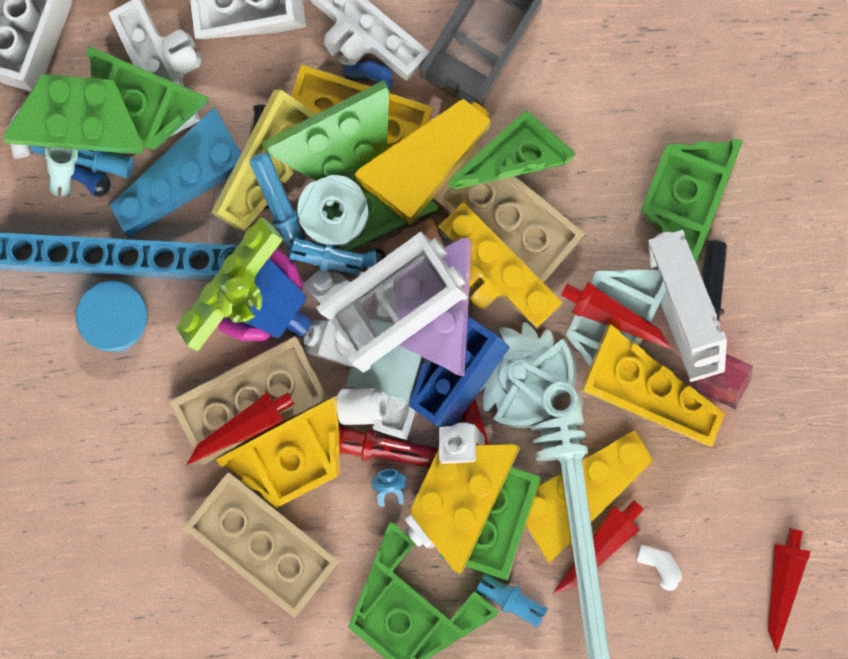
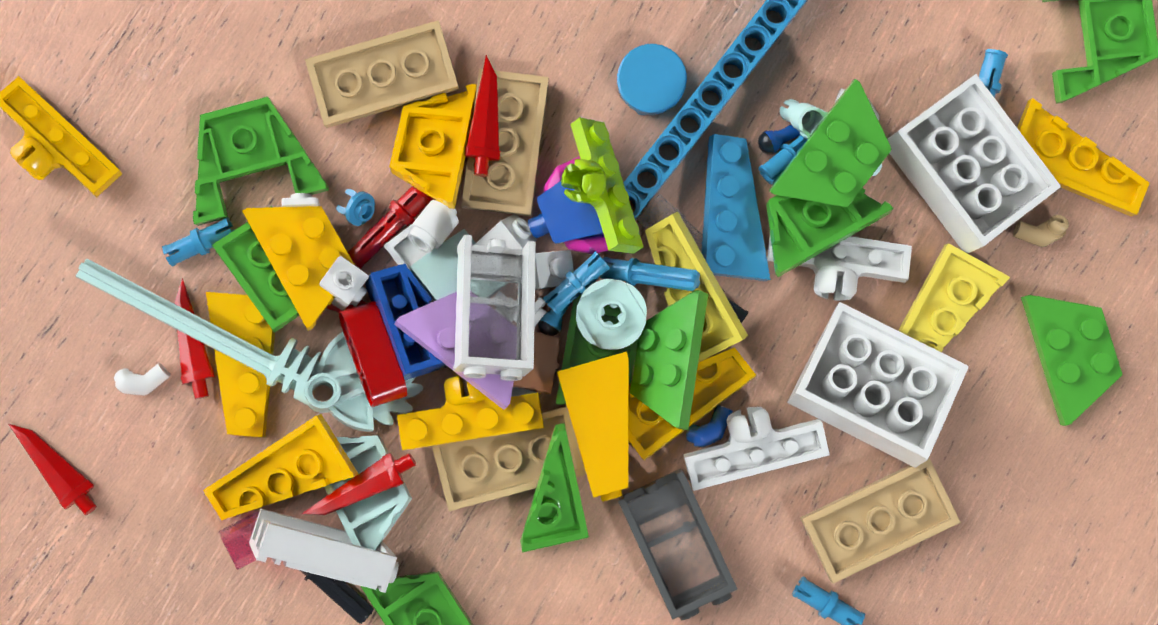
camera: 120 degrees right, 5 degrees up
(501, 380) = (373, 354): none -> red beam

